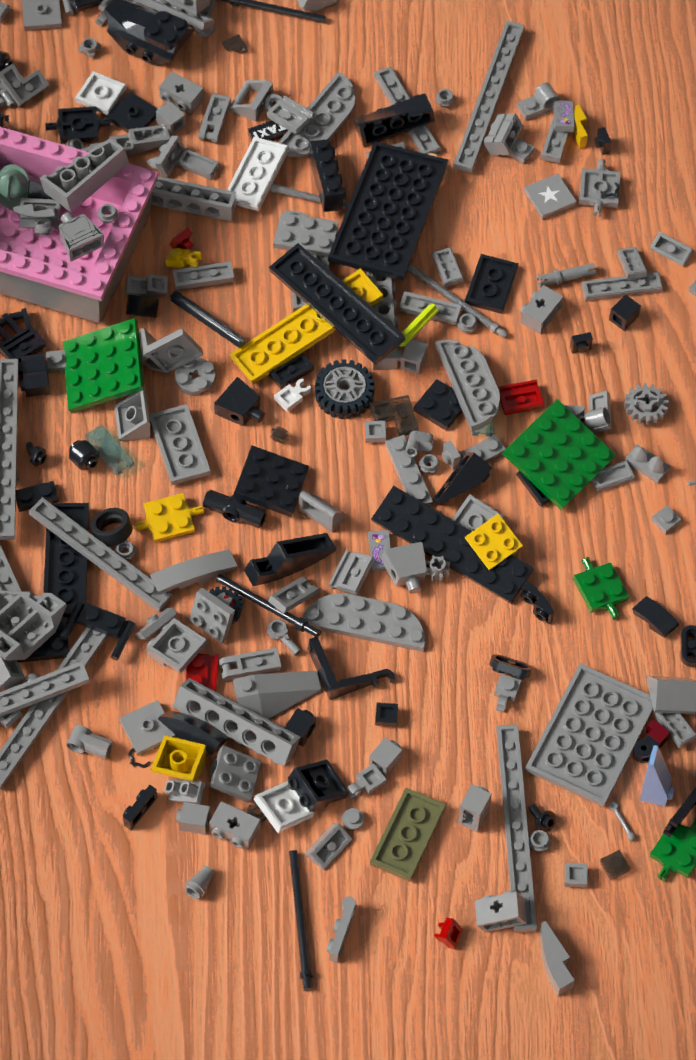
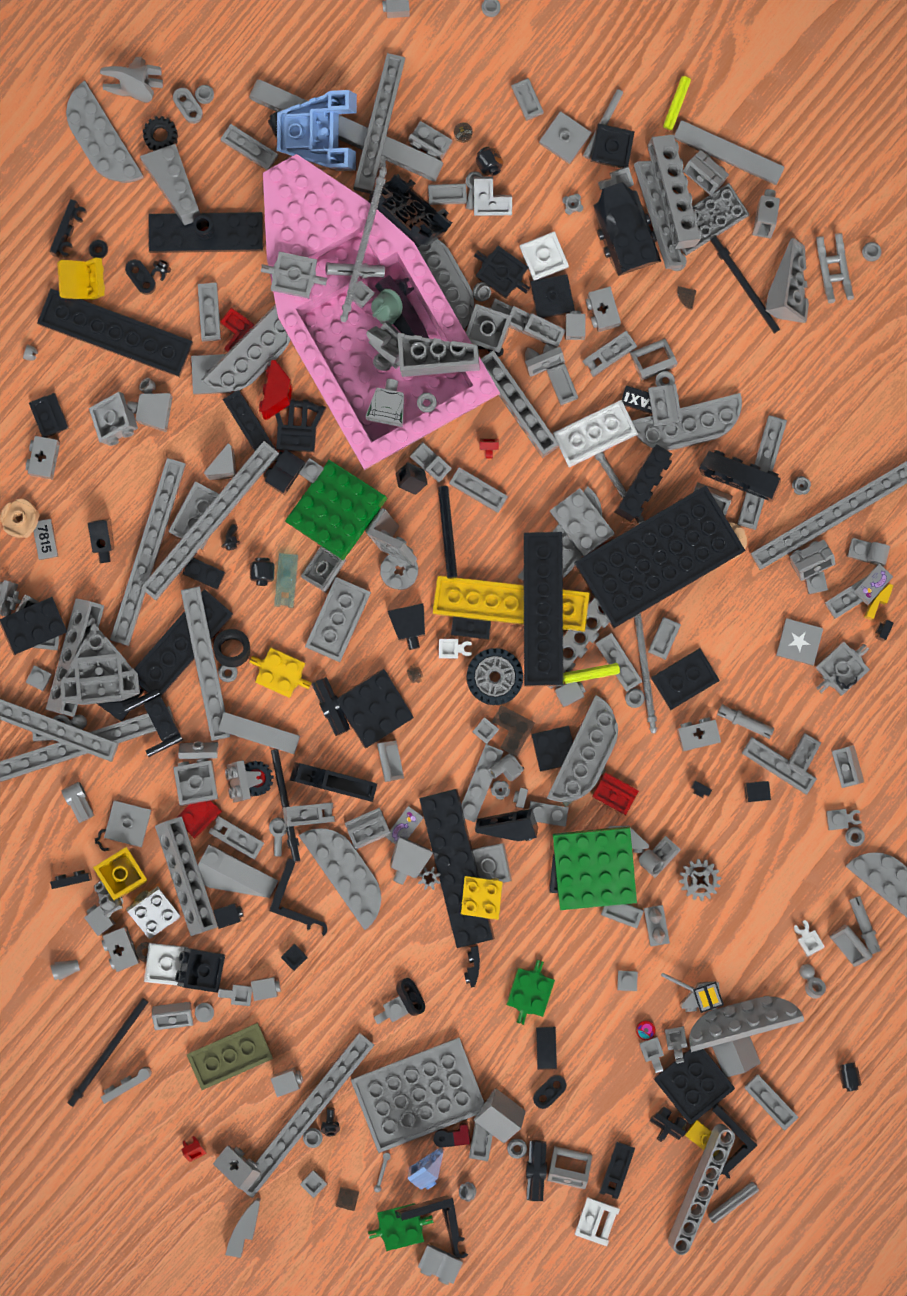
camera: 45 degrees right, 25 degrees up
(182, 257) = (475, 461): yellow plate -> none
(194, 730) = (152, 856): black slope -> none

